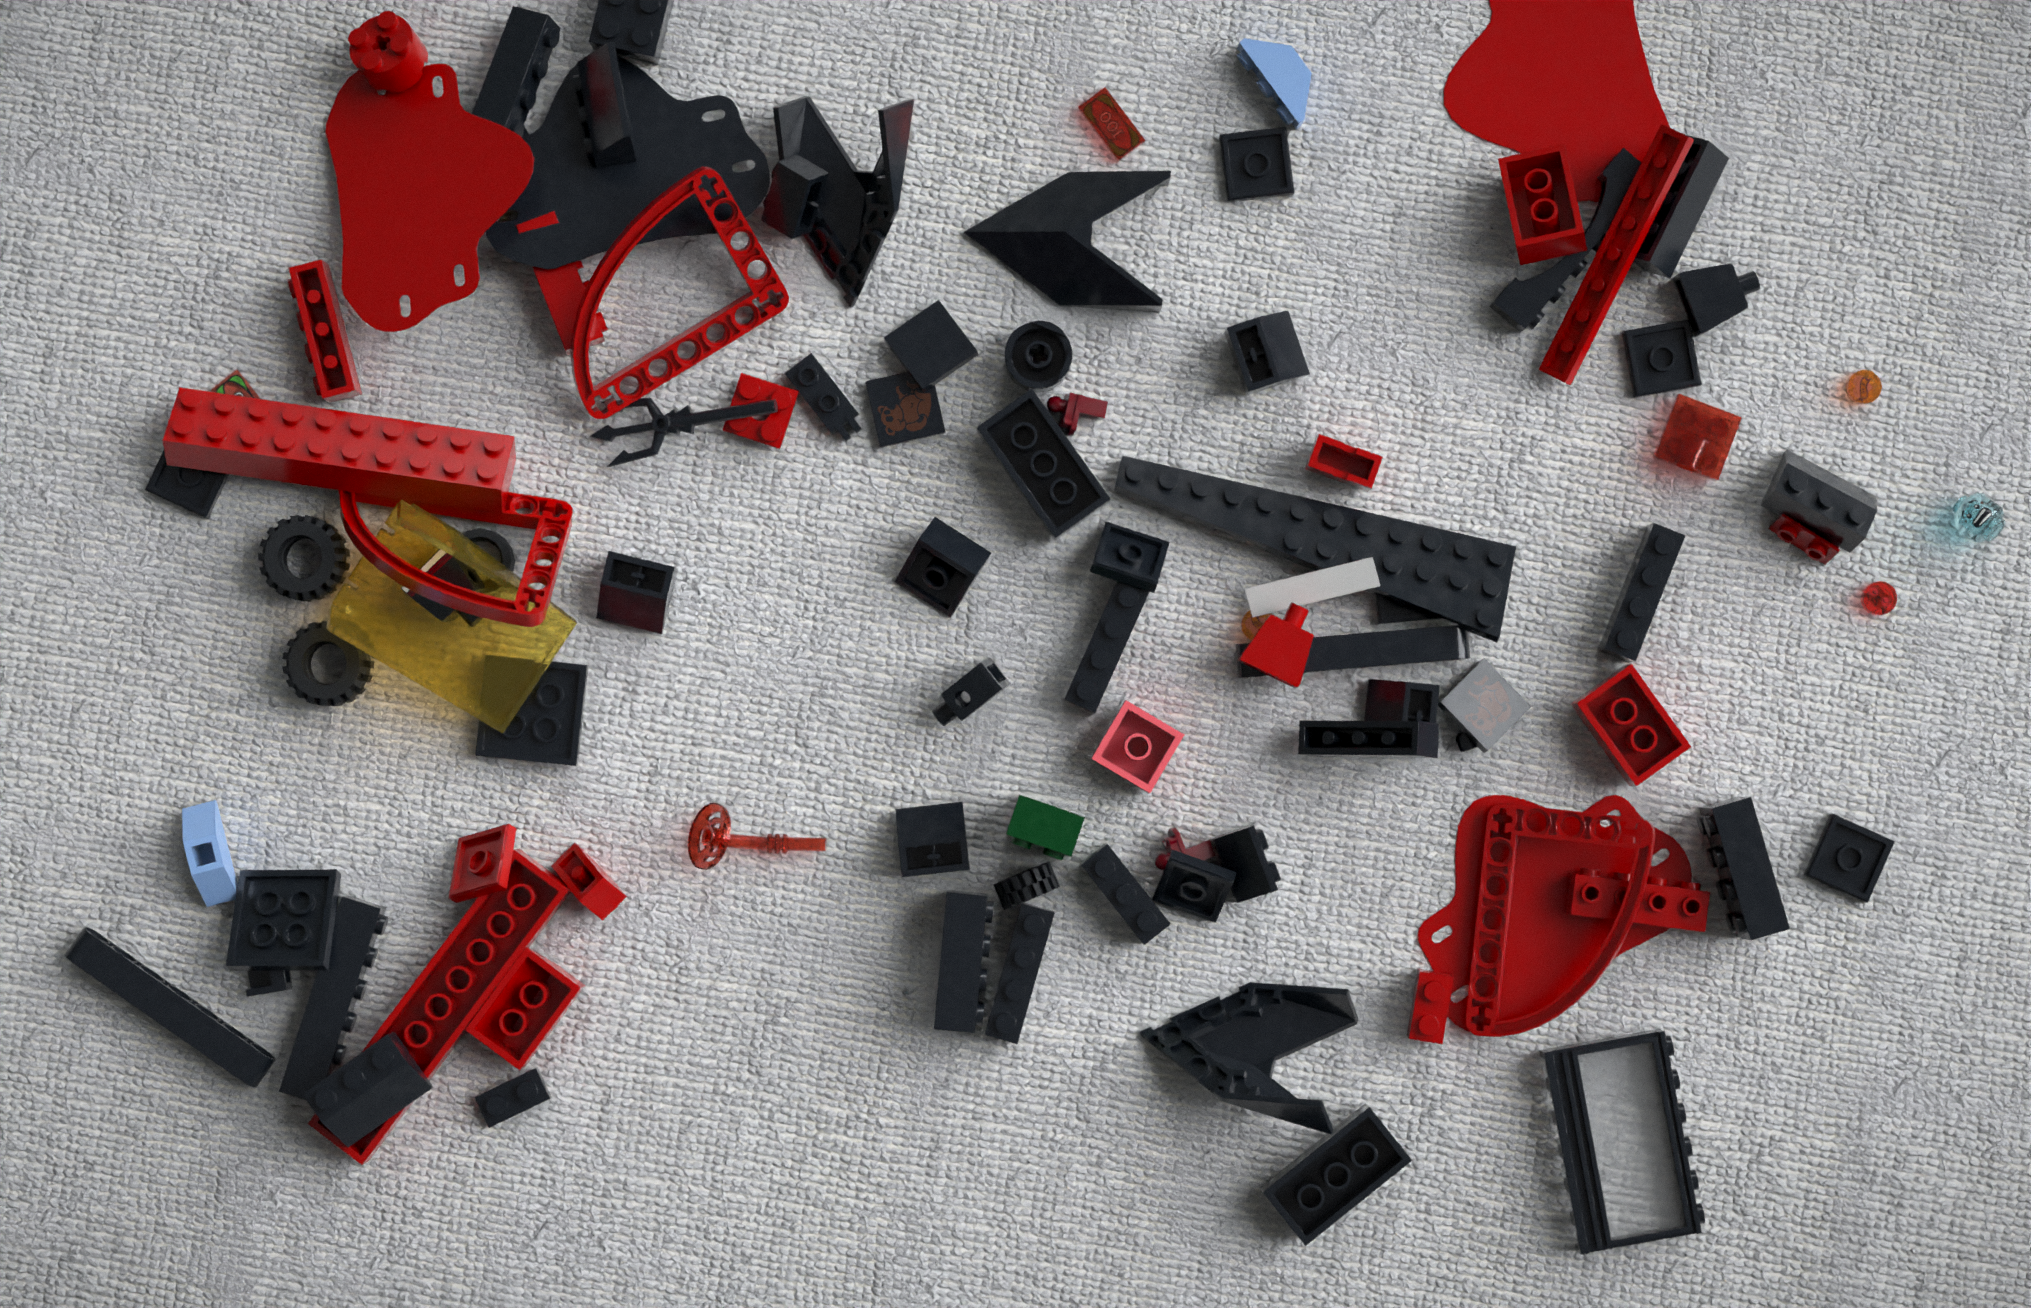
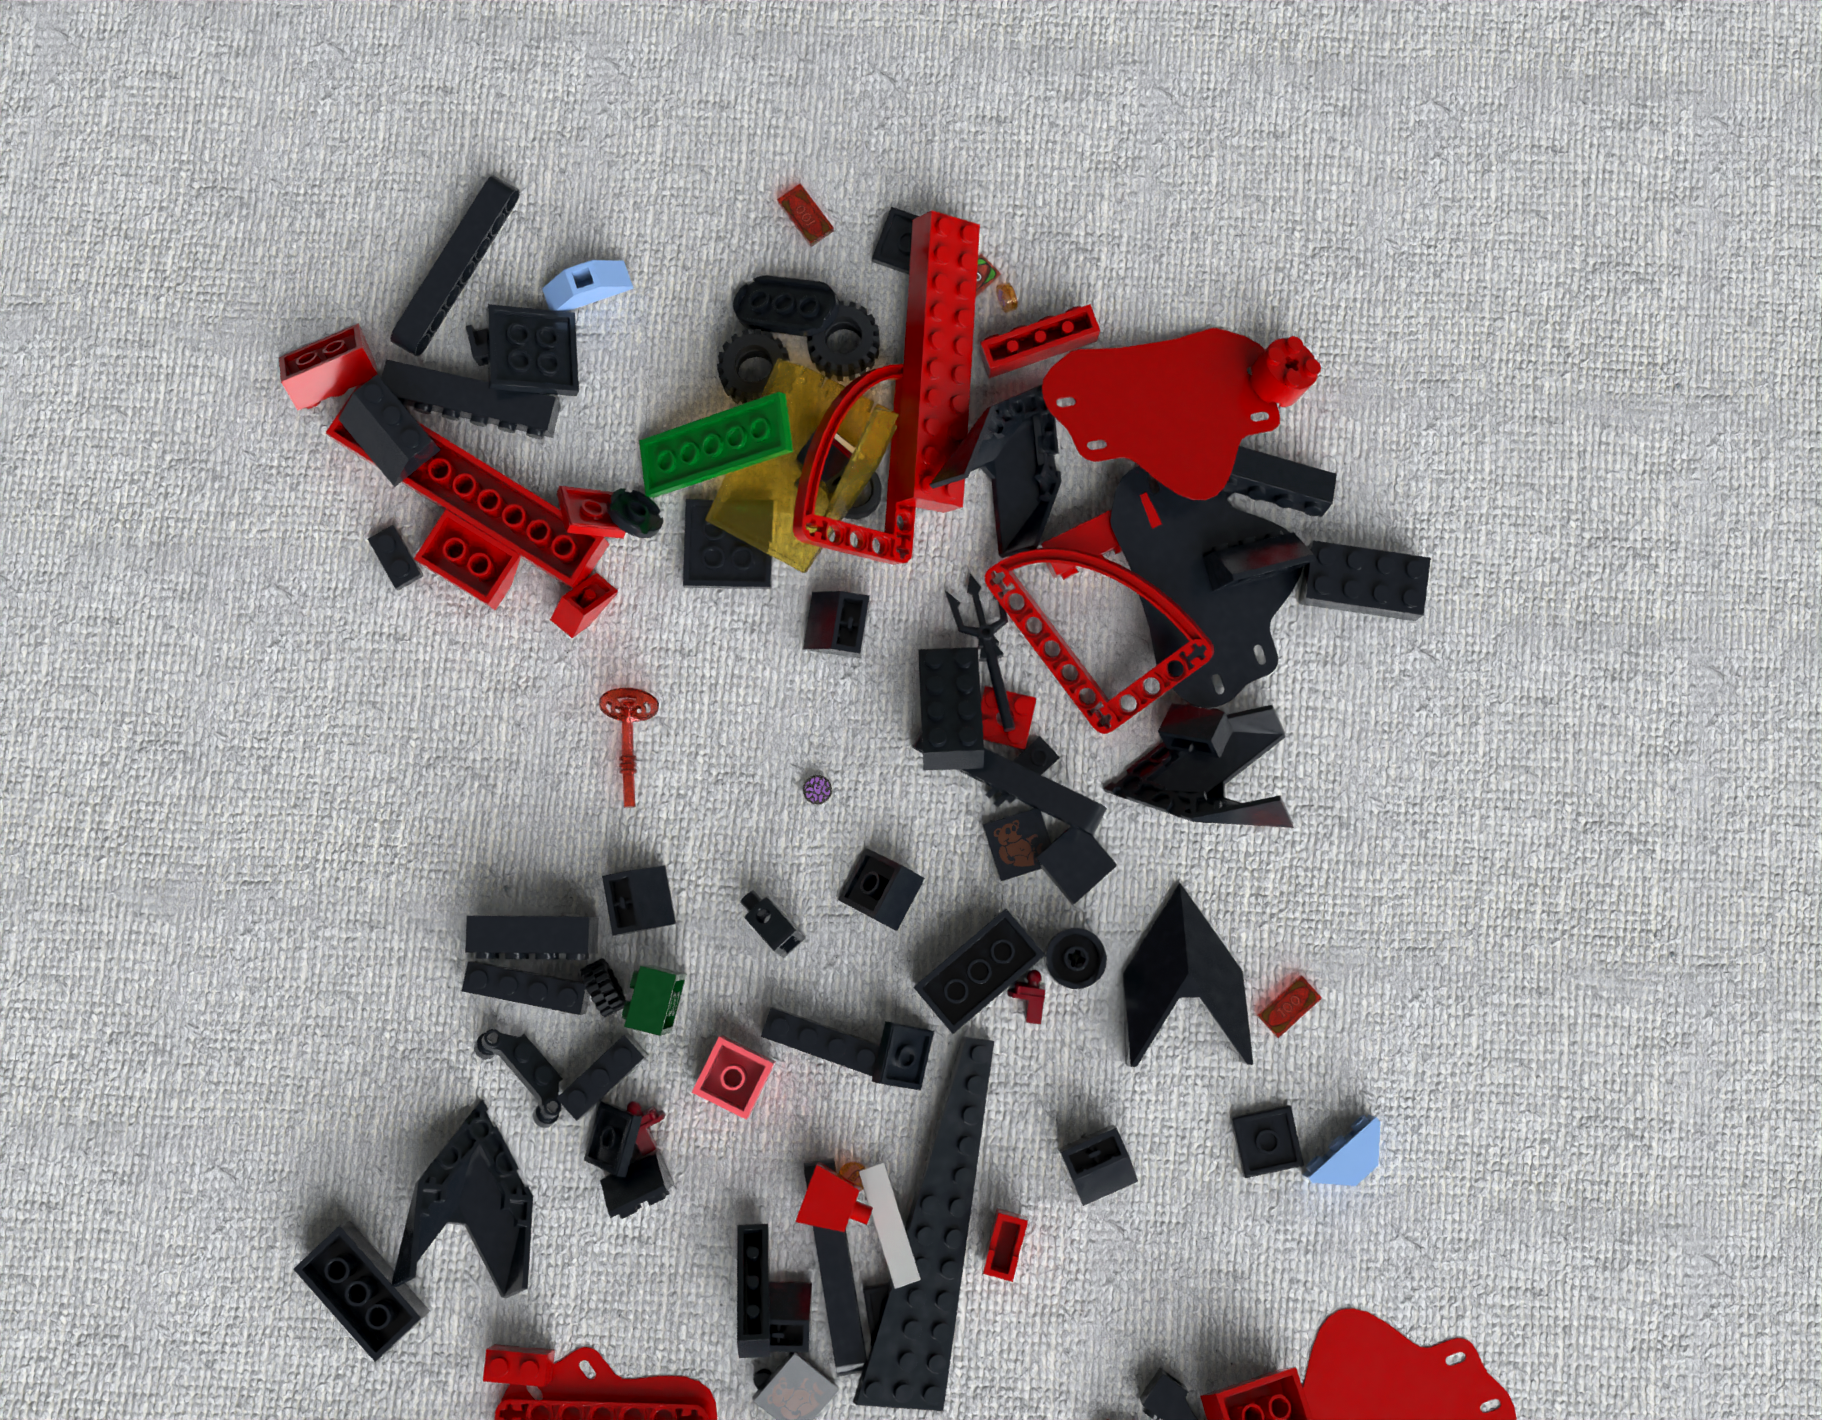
camera: 90 degrees right, 5 degrees down
(145, 591) = (805, 215): none -> clear red tile
(256, 620) = (786, 305): none -> black tile
(267, 364) = (1006, 297): none -> clear orange tile
(279, 1163) = (327, 367): none -> red slope
(419, 712) = (716, 445): none -> green plate
(457, 368) = (1017, 451): none -> black windscreen
(487, 814) = (634, 513): none -> black tile
(746, 469) = (951, 709): none -> black brick
(824, 630) = (817, 790): none -> clear smoke tile
(829, 412) = (1034, 790): none -> black beam
(1108, 976) = (530, 1069): none -> black plate

